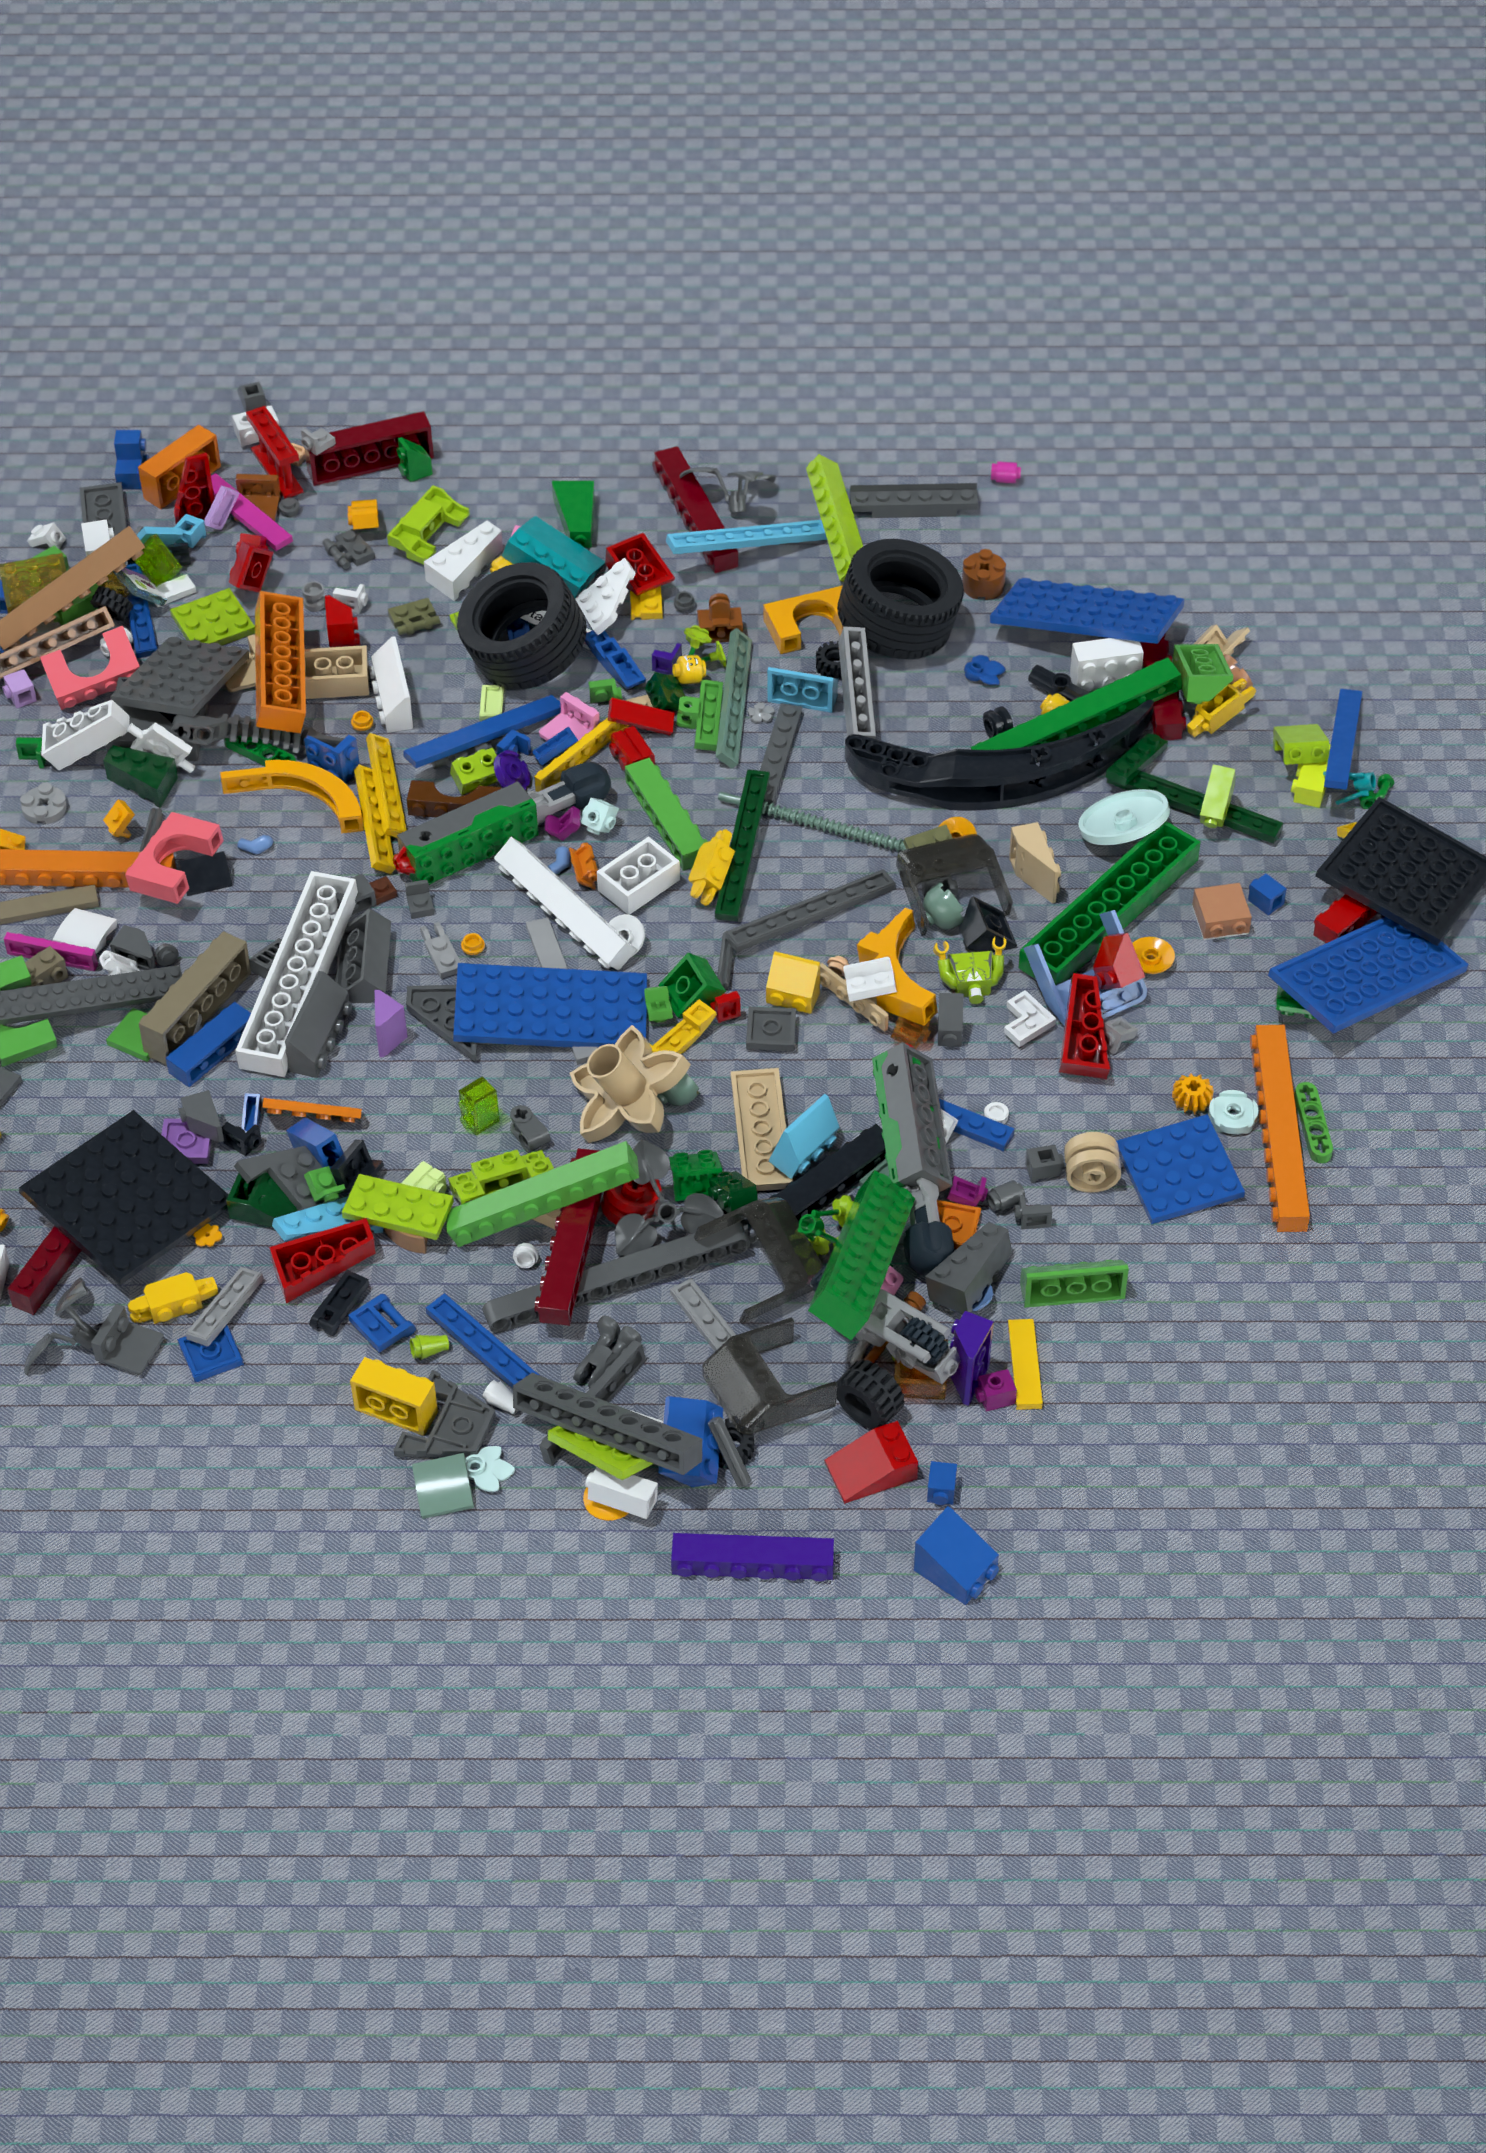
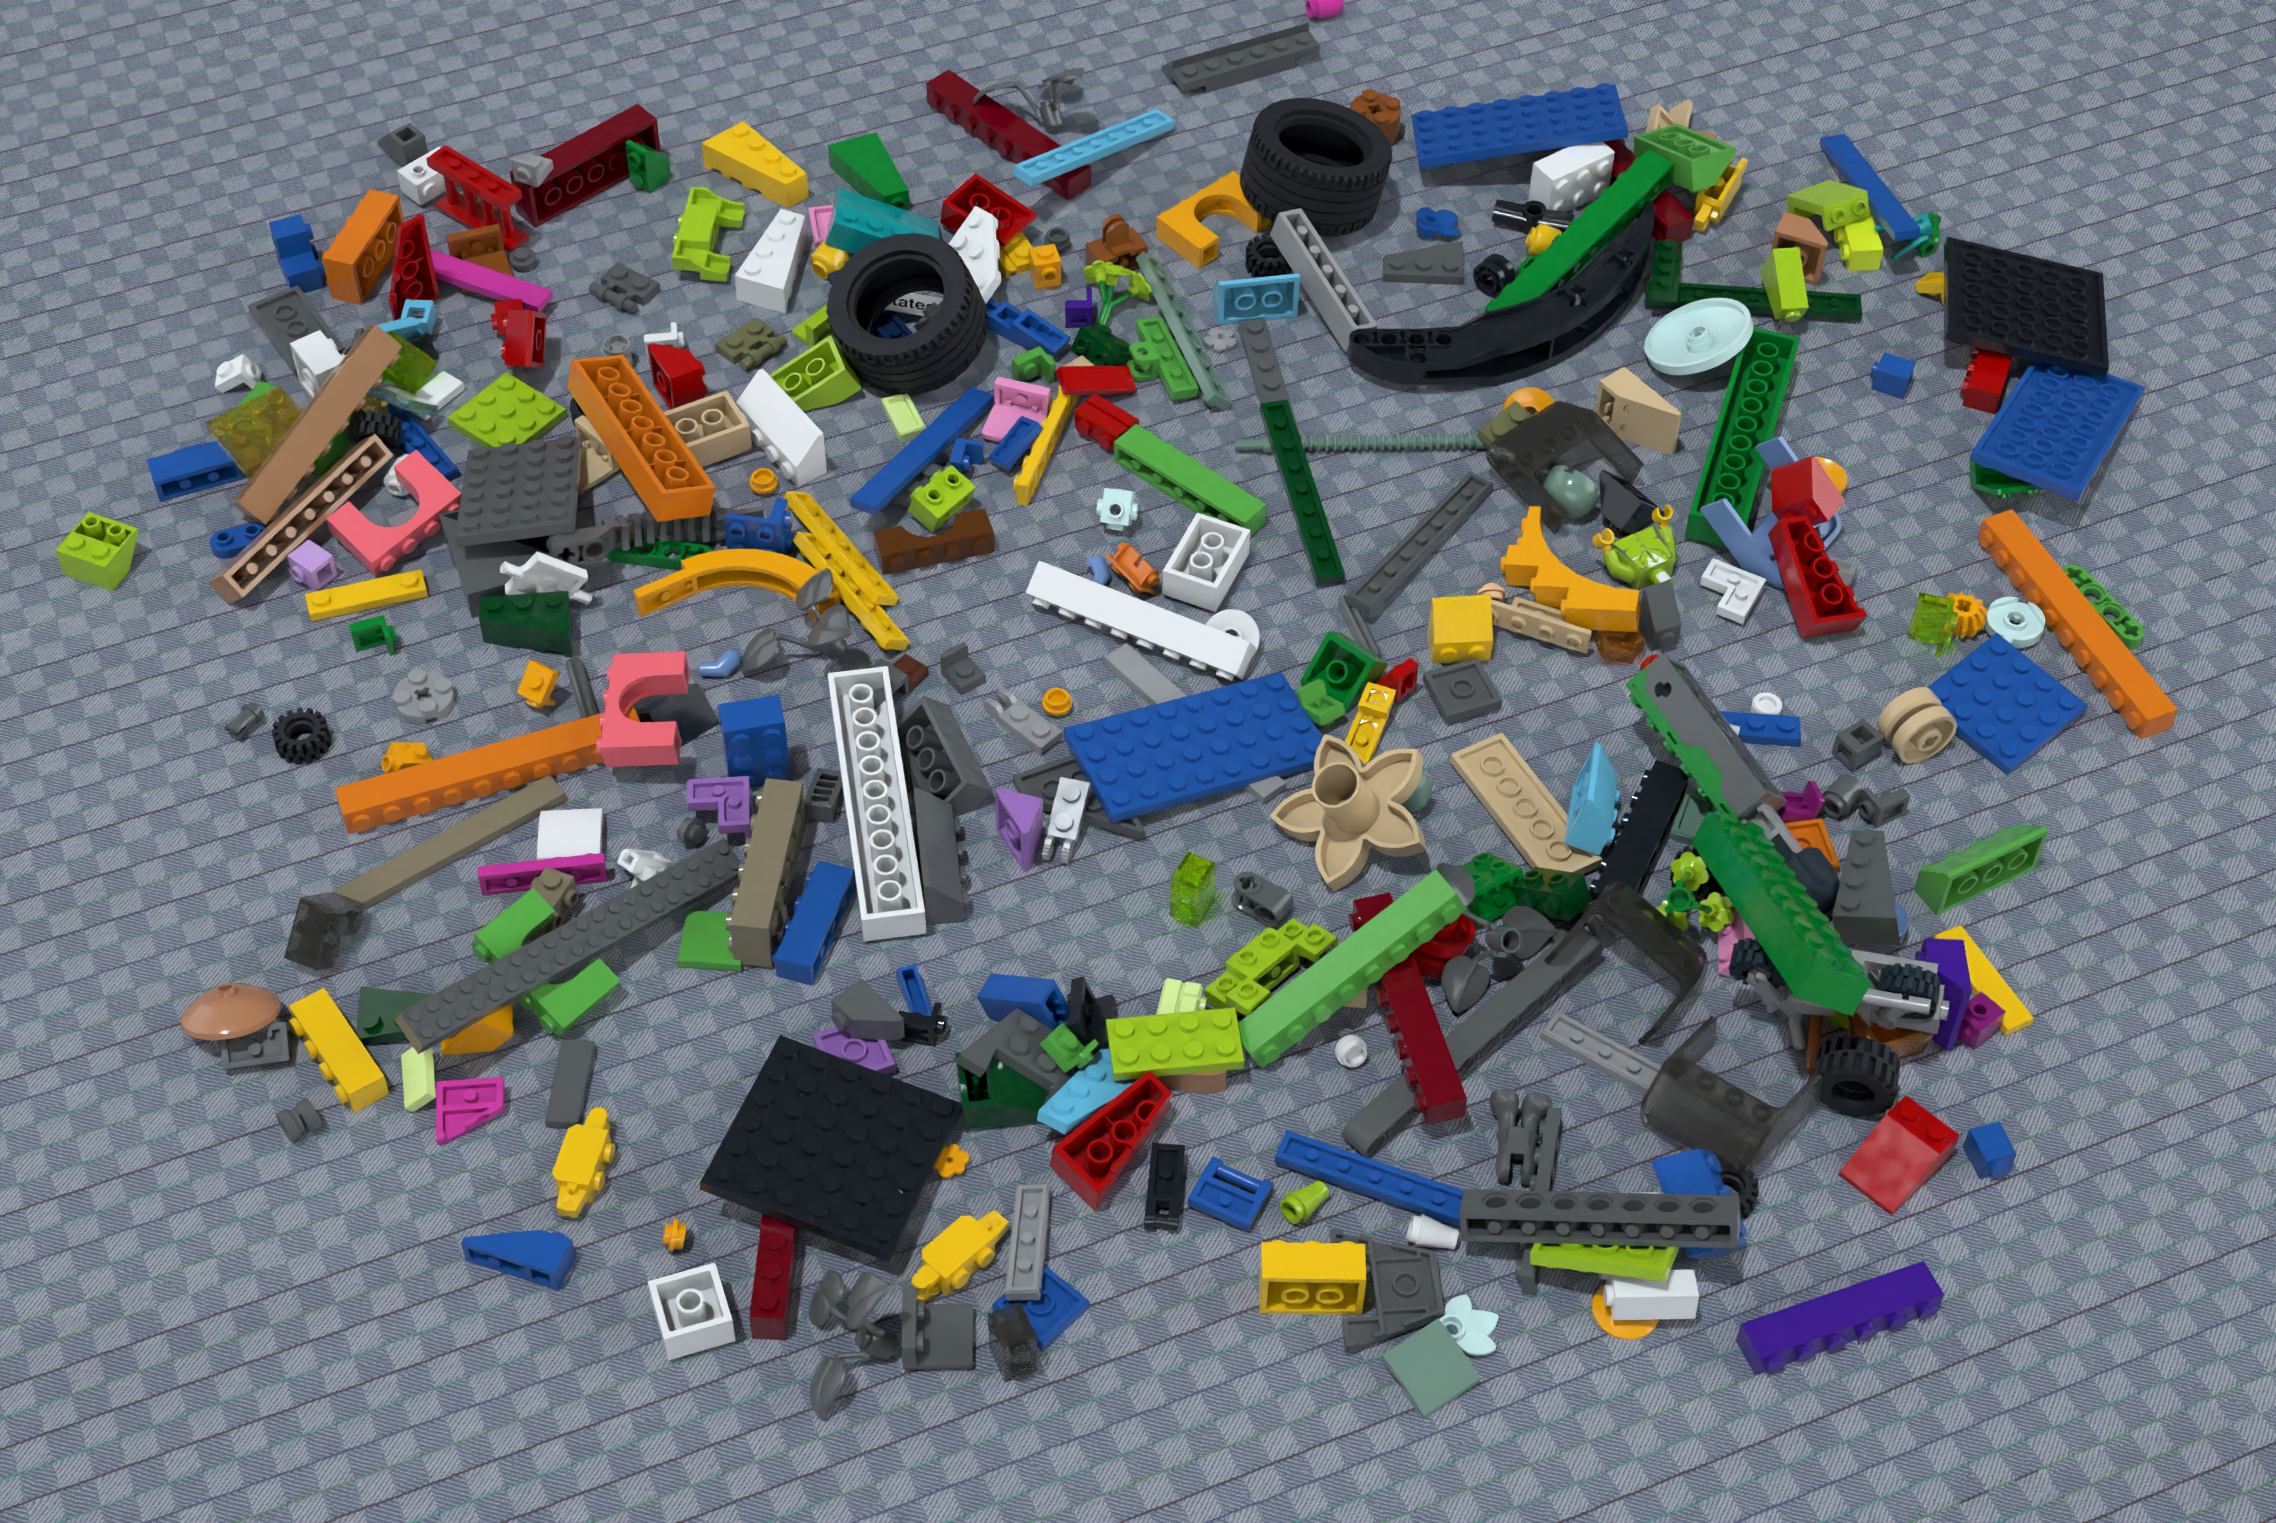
camera: 25 degrees left, 0 degrees up
(30, 719) = (366, 595): none -> yellow plate
(83, 733) = (438, 593): white wedge -> none
(133, 945) = (651, 833): dark grey slope -> none
(169, 1366) = (1012, 1342): none -> clear smoke brick
(195, 935) = (728, 796): none -> medium lavender panel
(221, 507) = (447, 280): lavender tile -> none
(235, 904) = (755, 739): none -> blue brick
(300, 1109) = (979, 964): orange wing -> none
(327, 842) = (826, 635): none -> dark grey plant
(363, 514) = (624, 242): light orange brick -> none
(424, 1028) = (1066, 817): none -> hinge
(438, 657) = (818, 376): none -> lime slope
(486, 824) = (1003, 553): piece -> none
(493, 478) = (757, 164): none -> yellow wedge
(511, 769) = (985, 487): dark purple tile -> none
(565, 825) = (1081, 529): magenta bracket -> none
(659, 619) = (1042, 261): none -> light orange brick
(689, 669) = (1118, 311): yellow head -> none
(711, 866) = (1285, 526): yellow hinge -> none
(729, 1452) = (1748, 1202): dark grey axle -> none
(834, 512) = (1178, 104): lime brick -> none
(869, 979) = (1555, 597): white bracket -> none
(955, 1557) = (2066, 1233): blue slope -> none
(957, 702) = (1427, 265): none -> dark grey wing
(1160, 1090) = (1932, 621): none -> clear neon green bracket
(1221, 911) = (1860, 408): nougat piece -> none
(1250, 770) = (1802, 233): none -> nougat slope

